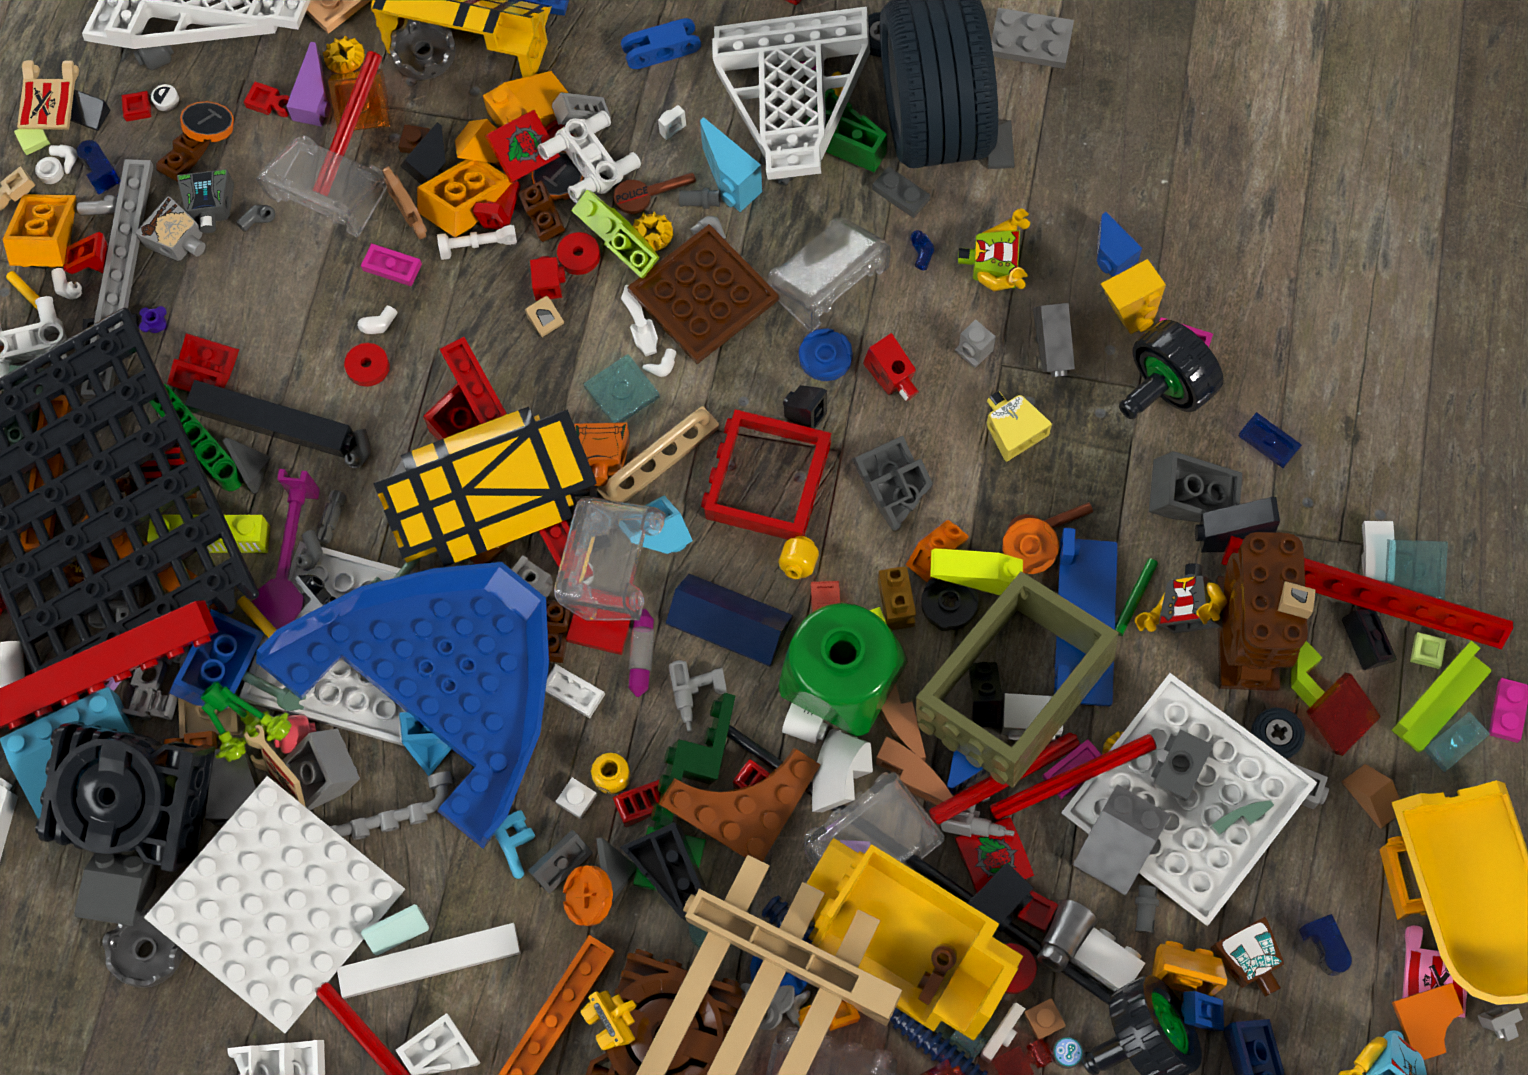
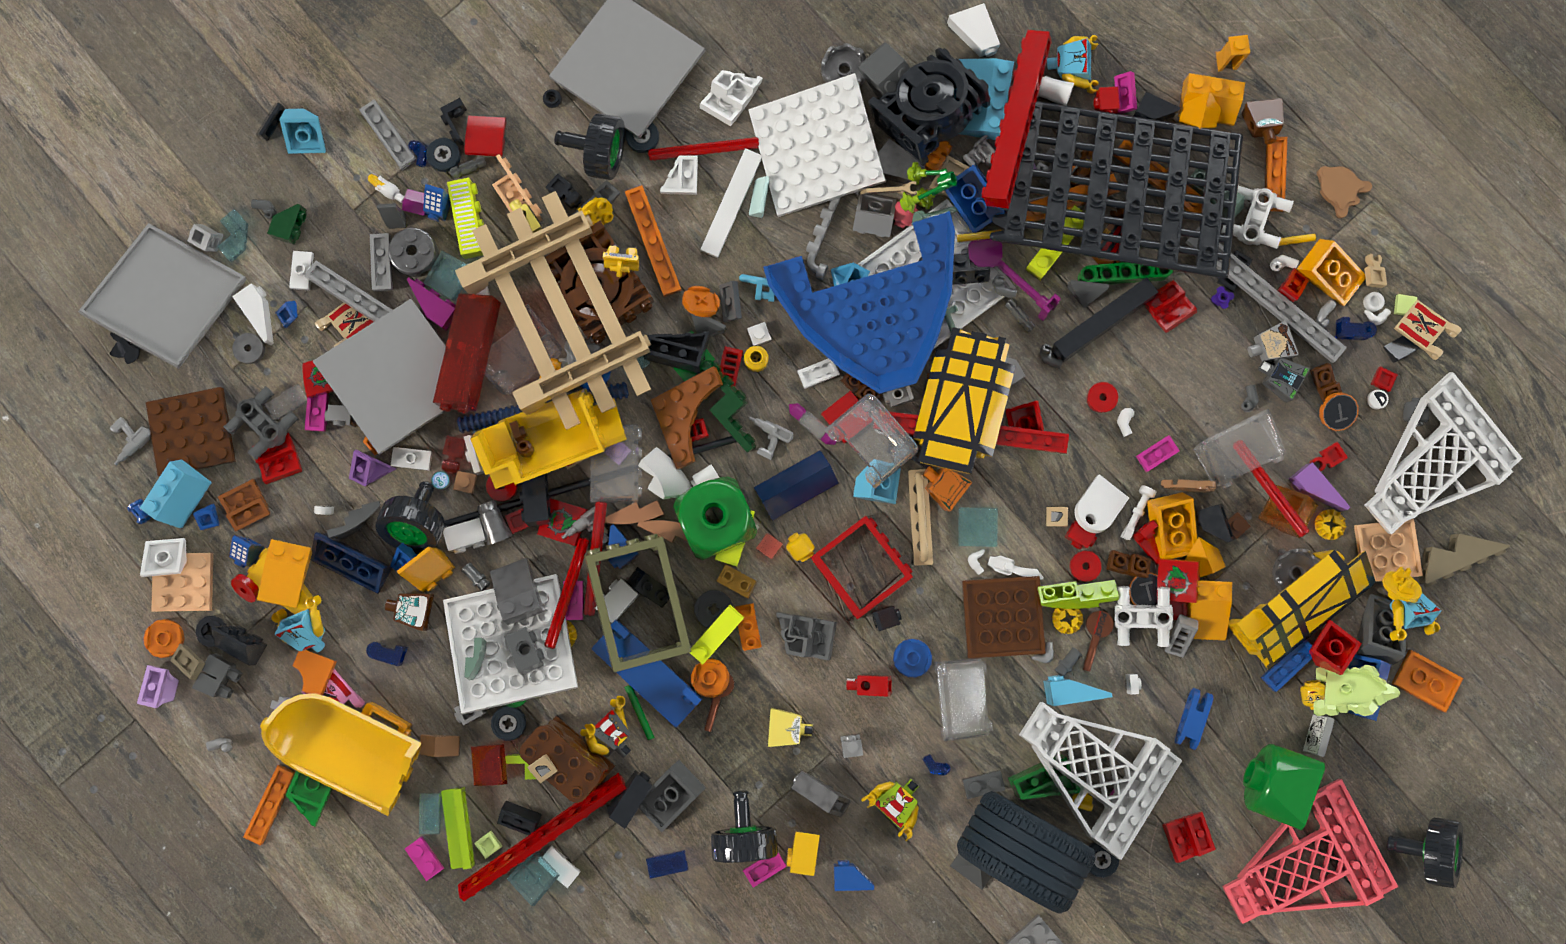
camera: 125 degrees right, 15 degrees up
(496, 279) = (1100, 503): none -> white tile

